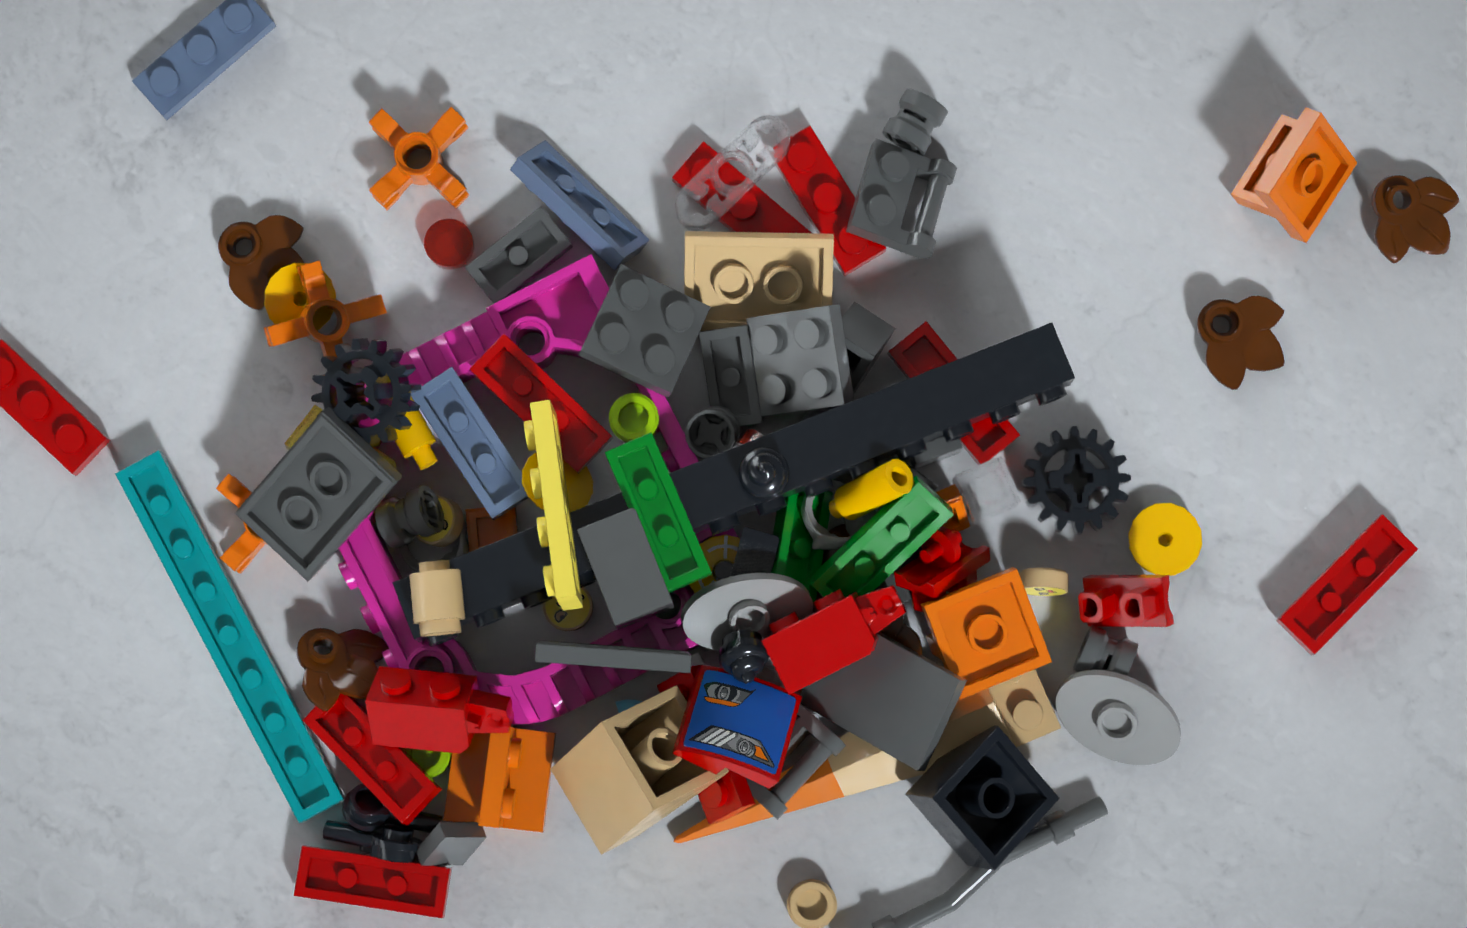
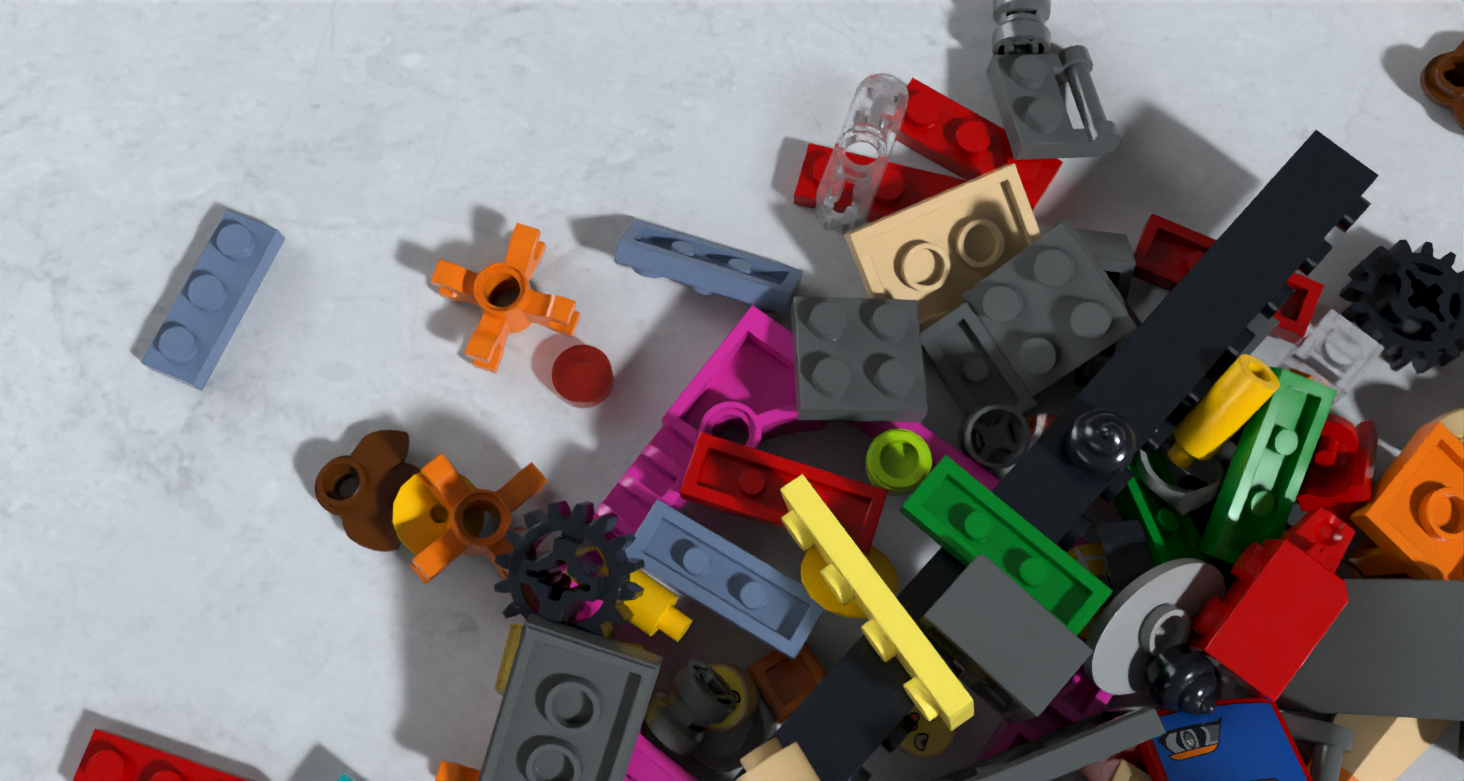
camera: 25 degrees left, 10 degrees down
(519, 256) = (668, 351): dark grey plate -> none

